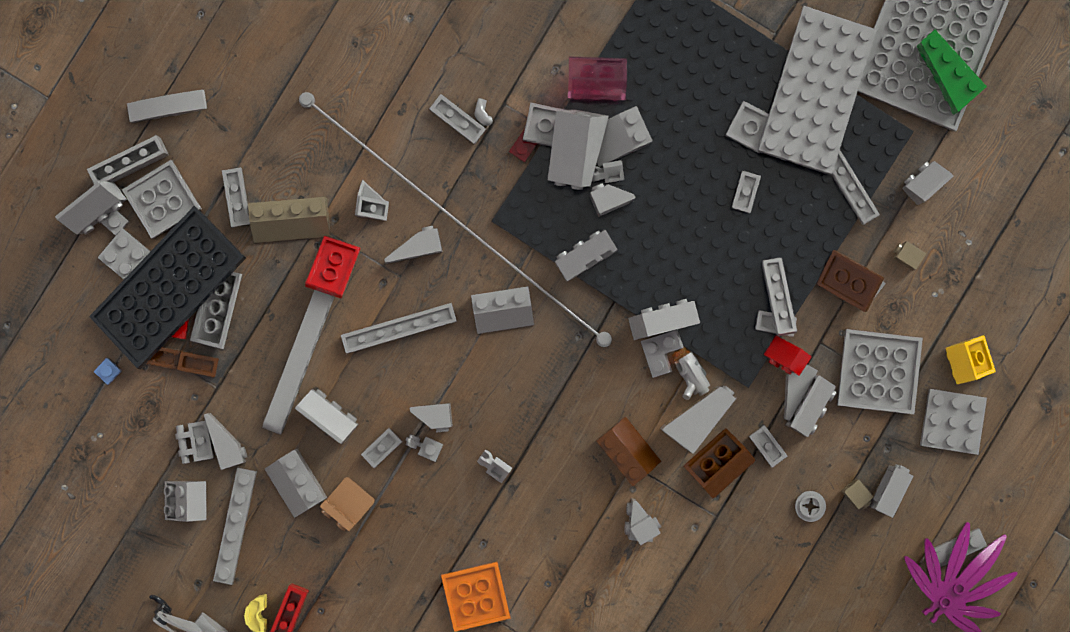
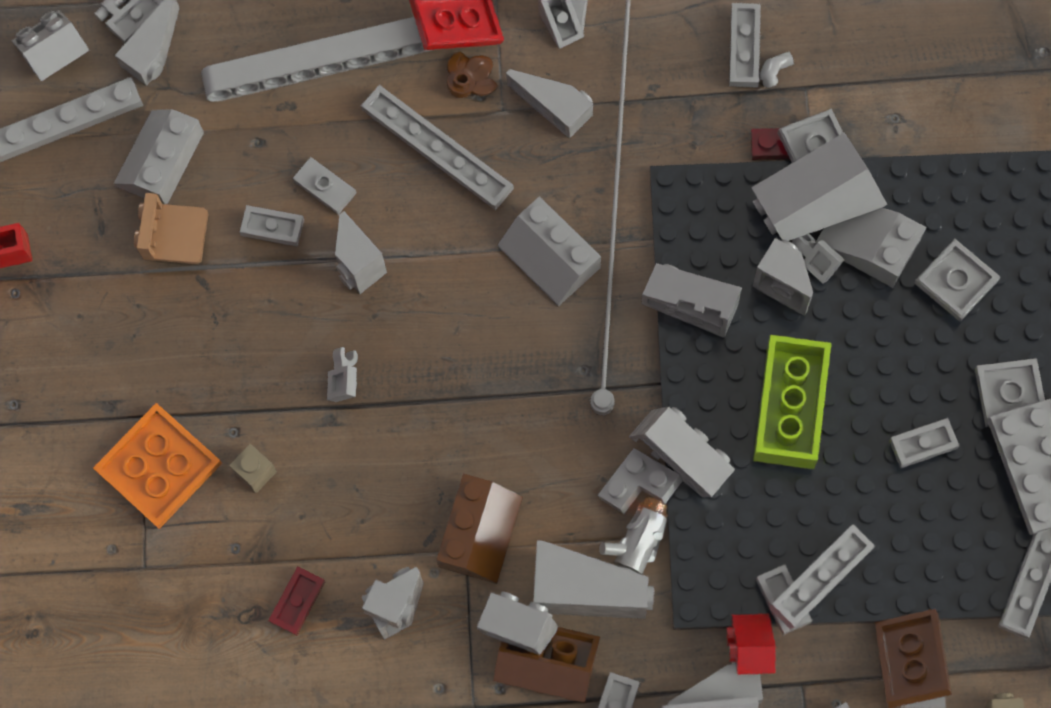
camera: 60 degrees right, 15 degrees down
(327, 415) = (266, 133): slope -> none
(366, 278) = (473, 74): none -> reddish brown plate
(377, 403) = (324, 185): none -> light grey plate
(429, 448) = (311, 283): light grey plate -> none
(513, 547) = (253, 468): none -> dark tan brick
(597, 78) = (921, 164): clear pink slope -> none
(600, 571) = (297, 601): none -> dark red plate
(672, 108) = (957, 280): none -> light grey plate
(679, 244) = (792, 402): none -> lime brick
(695, 468) = (517, 623): none -> light grey slope

